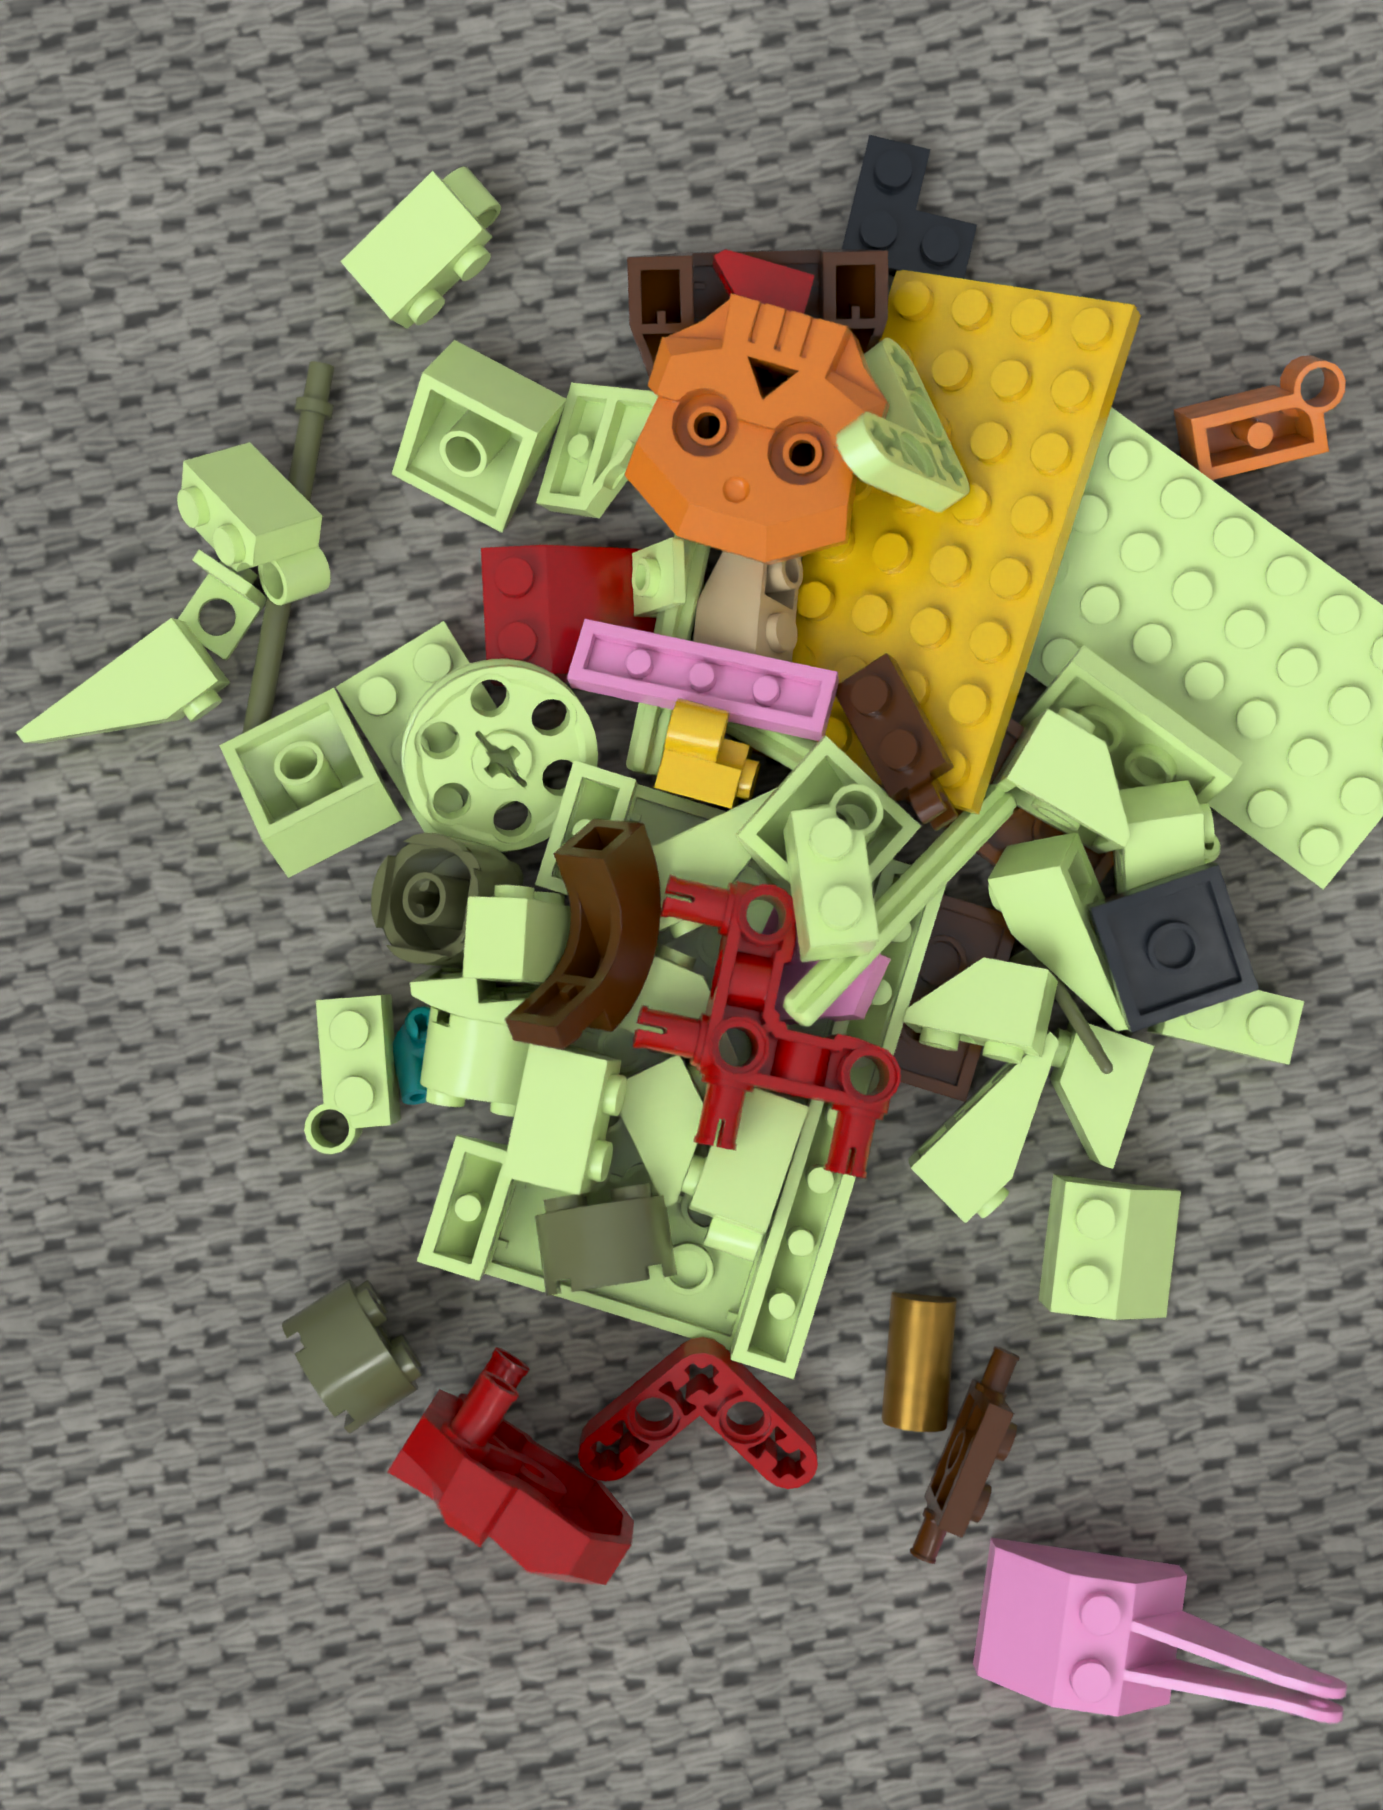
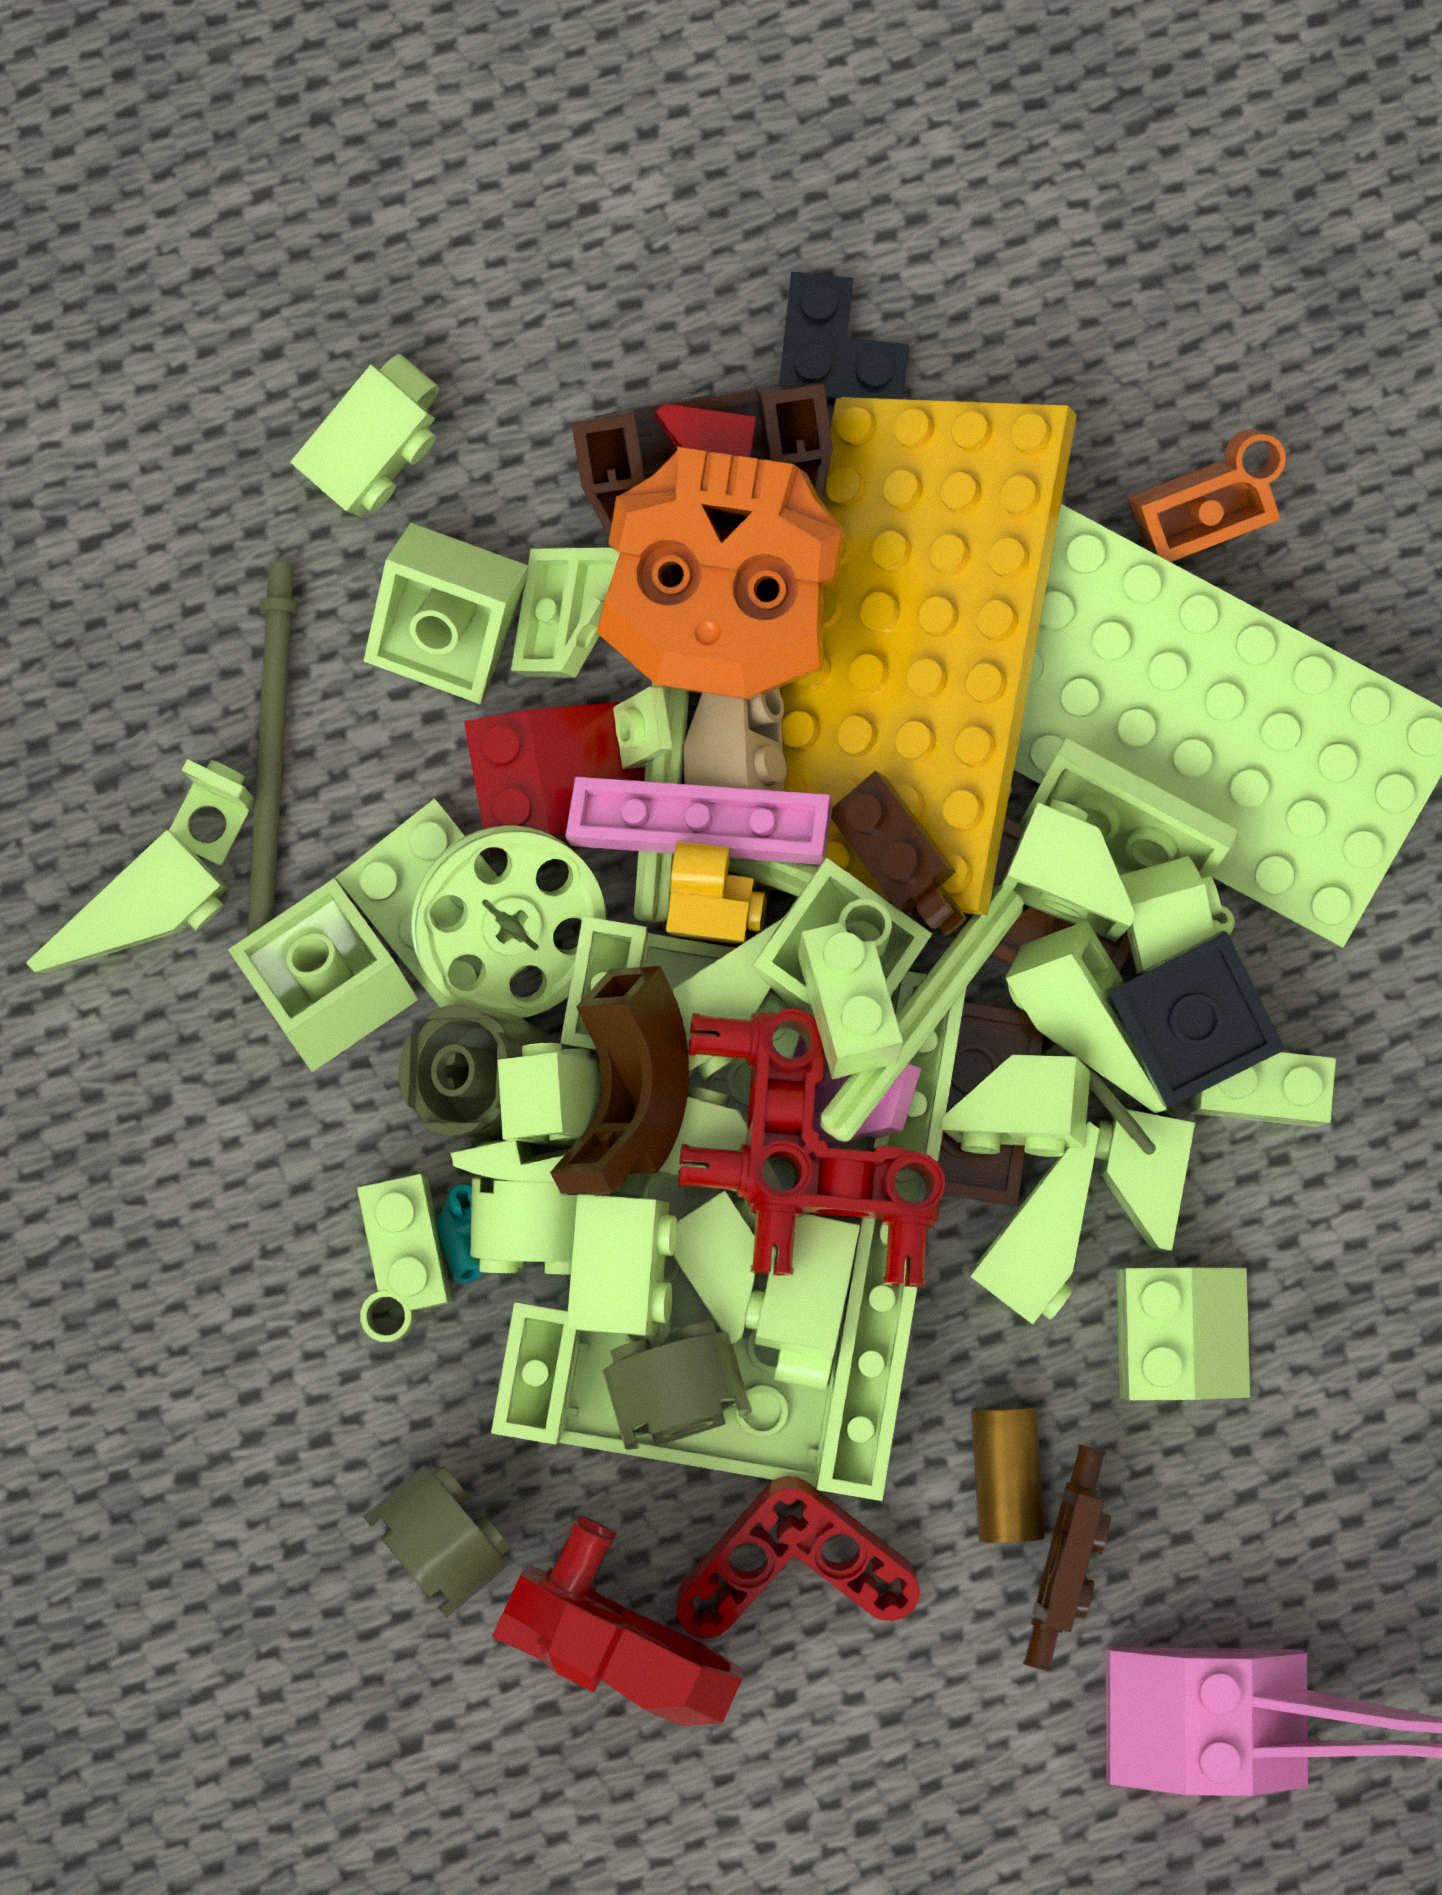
camera: 10 degrees left, 5 degrees down
(255, 520) = (238, 724): yellowish green hinge -> none
(909, 448) = (871, 570): yellowish green beam -> none

